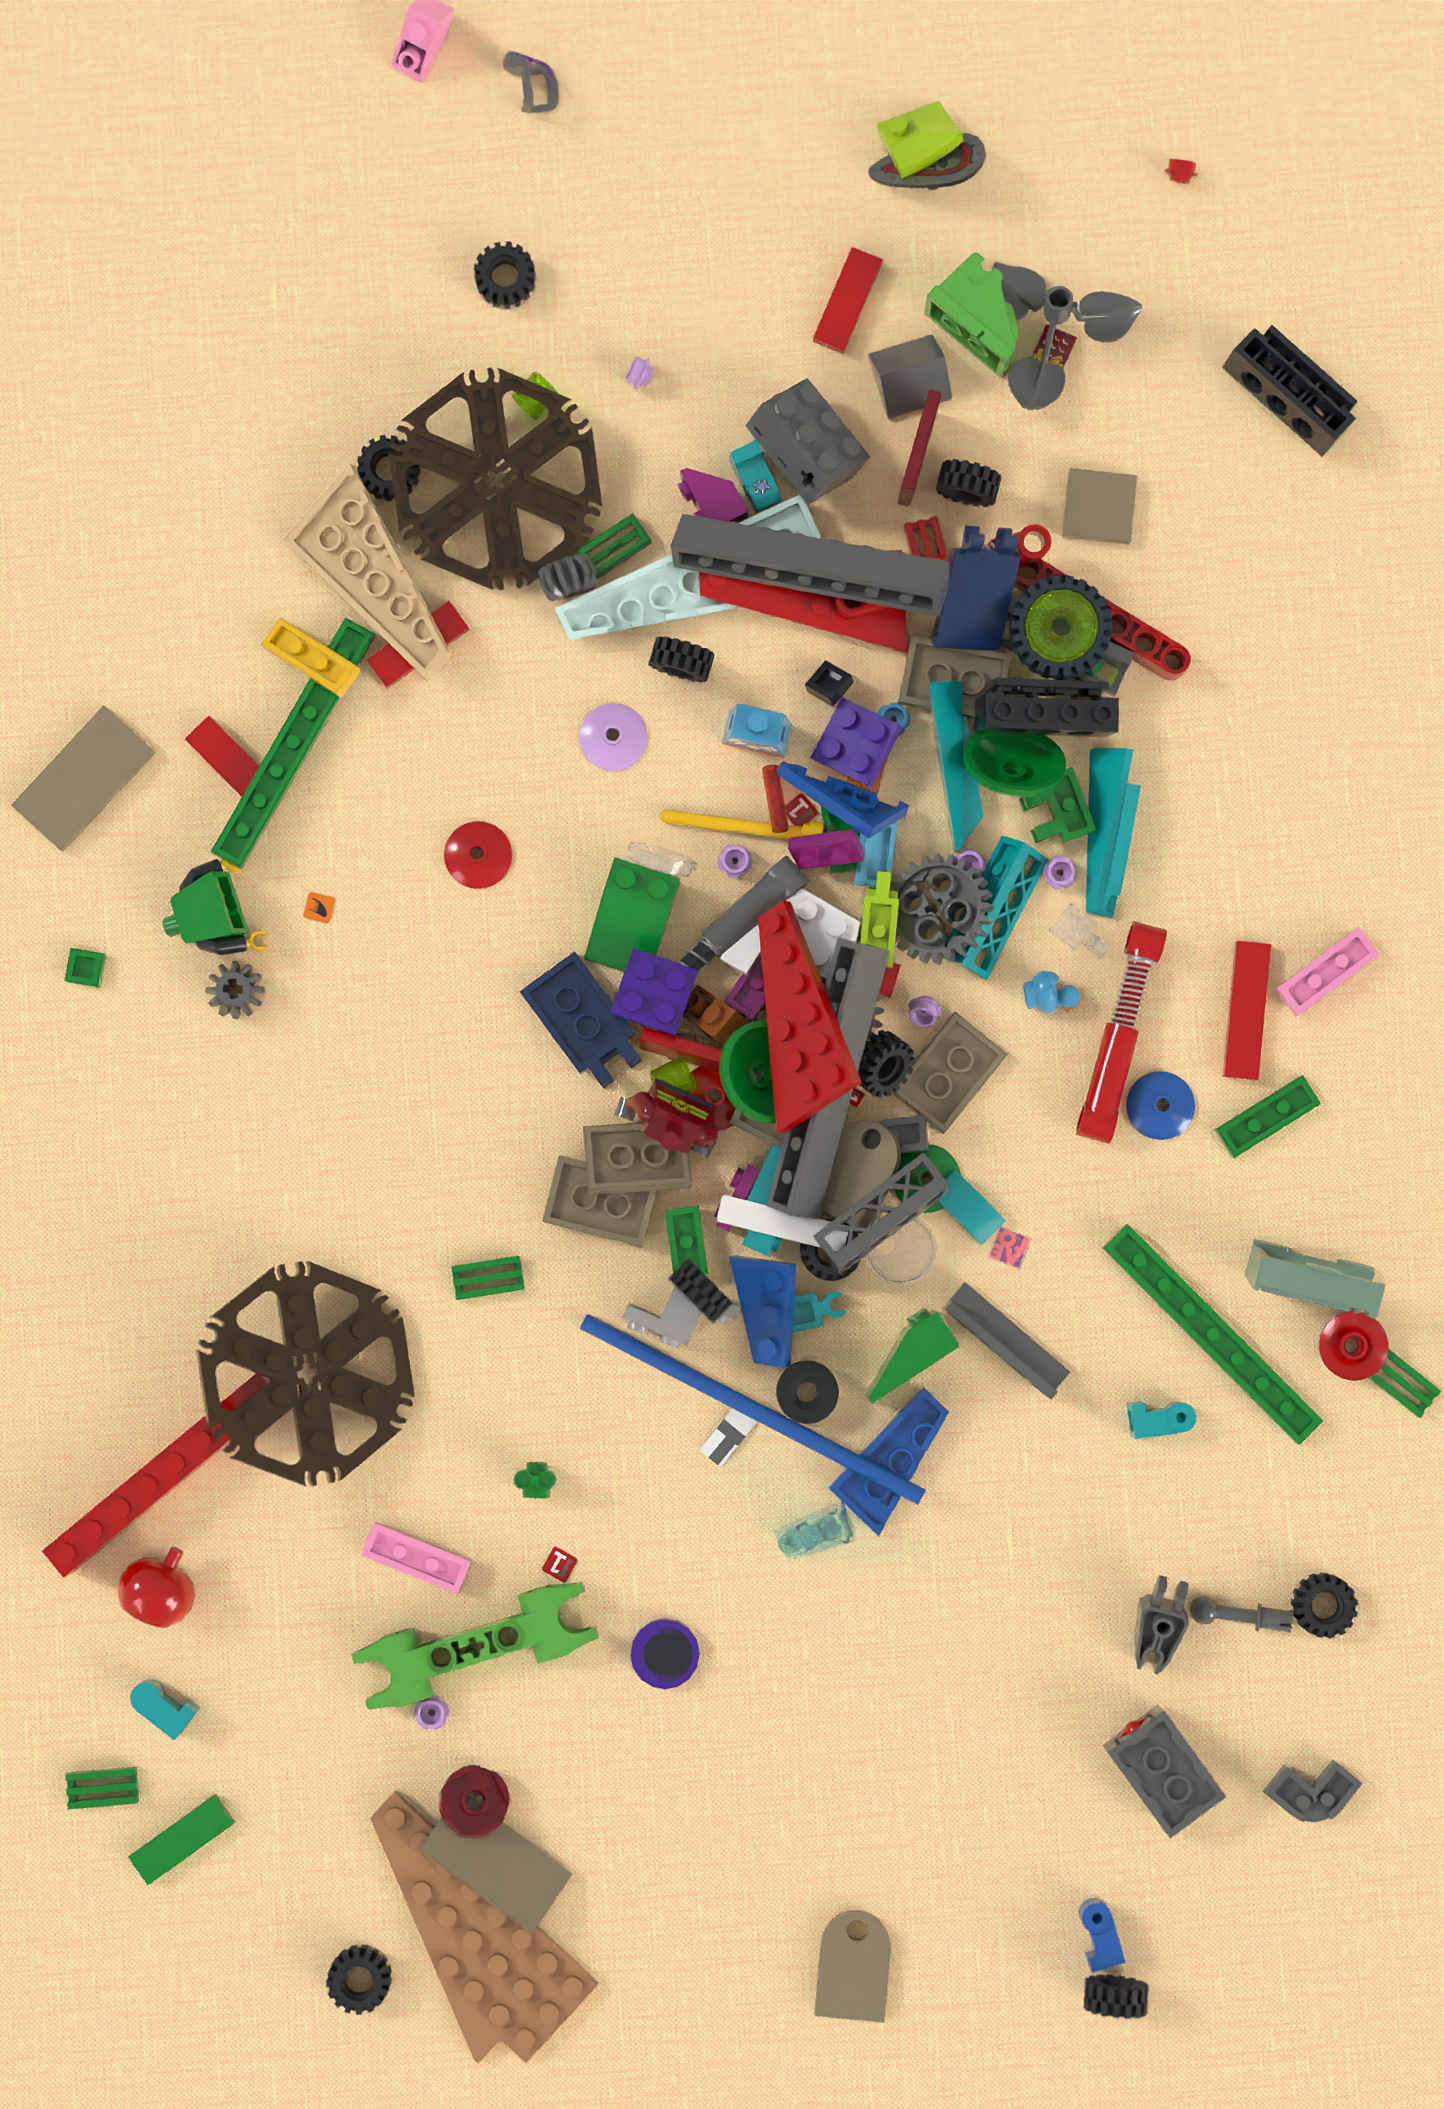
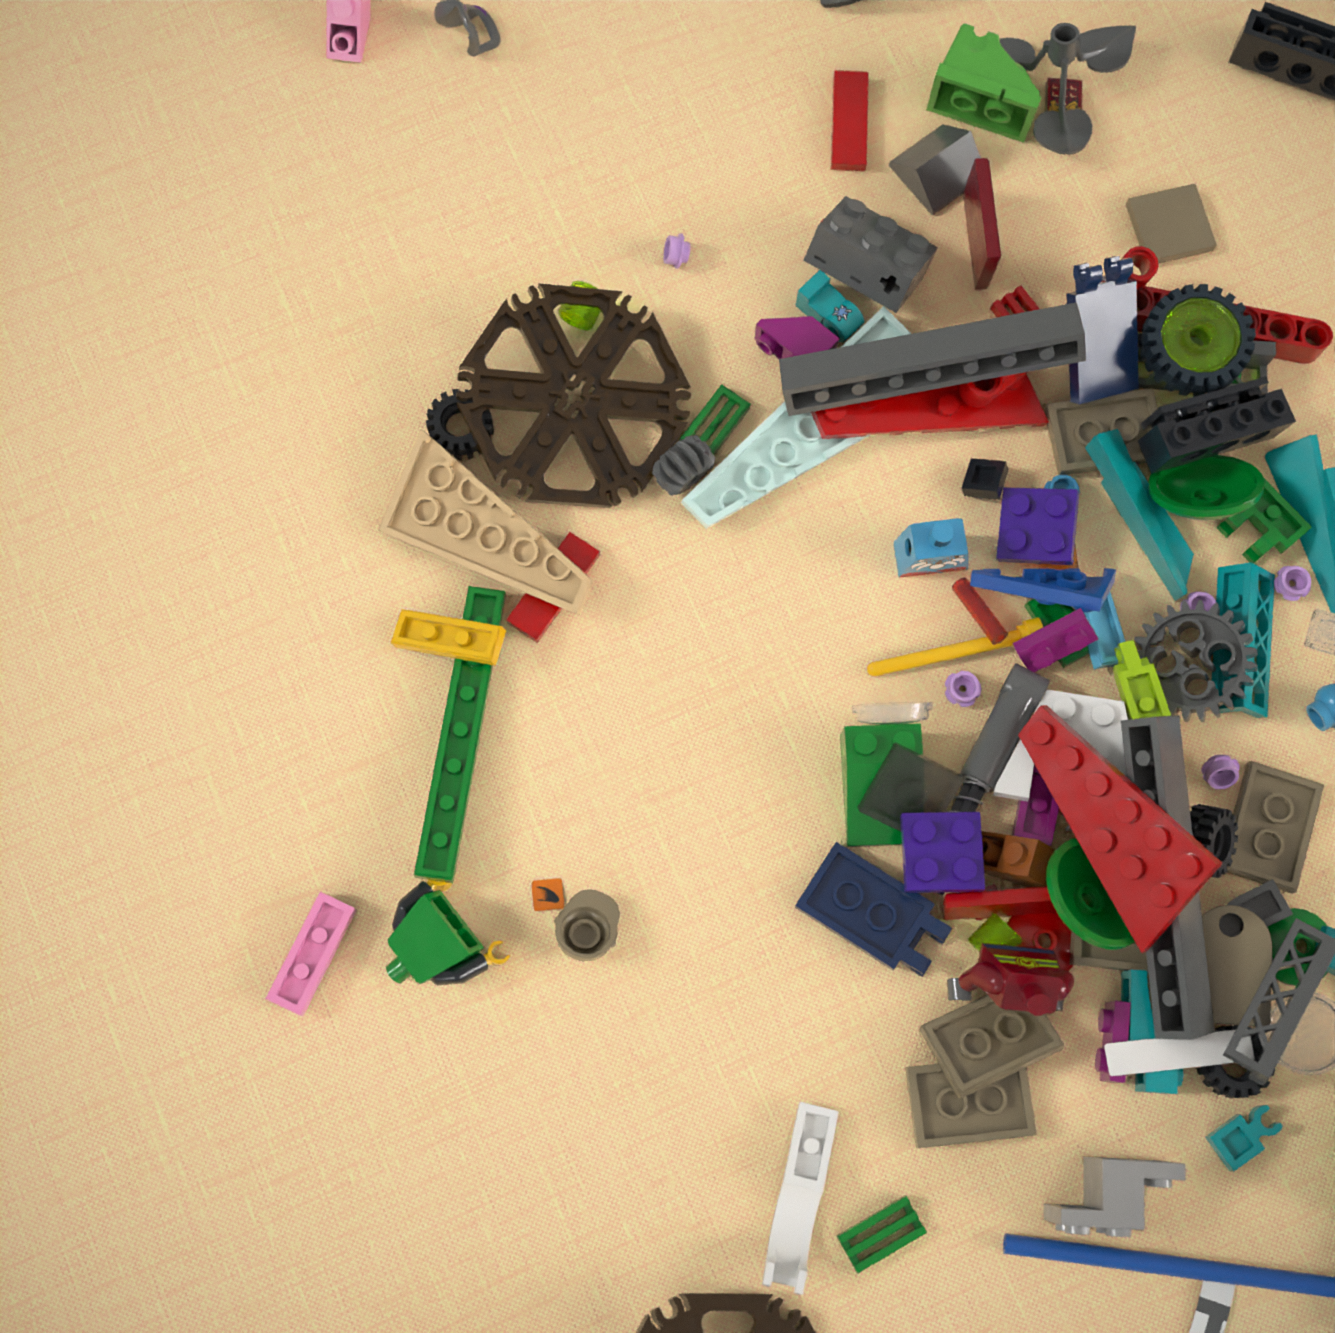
camera: 20 degrees left, 10 degrees down
(83, 778) = (248, 849): dark tan tile -> none
(85, 967) = (317, 1052): green tile -> none
(106, 885) = (311, 954): none -> bright pink plate
(223, 754) = (390, 770): red tile -> none
(242, 979) = (497, 1004): dark grey gear -> none
(340, 945) = (587, 925): none -> dark tan hat
(433, 1223) = (800, 1196): none -> white piece
(483, 871) = (690, 797): red dish -> none
(505, 255) = (508, 187): black tyre -> none
(613, 754) = (782, 626): lavender dish -> none
(649, 927) = (908, 785): none -> clear smoke tile
(681, 659) = (830, 504): black tyre -> none
(686, 1237) = (1079, 1112): green plate -> none
(700, 1290) = (1143, 1162): black tyre -> none
(767, 1307) = (1192, 1133): blue wing -> none
(800, 810) = (1007, 614): red sticker -> none
(811, 1411) = (1301, 1225): black tyre -> none
(968, 483) = (1042, 240): black tyre -> none

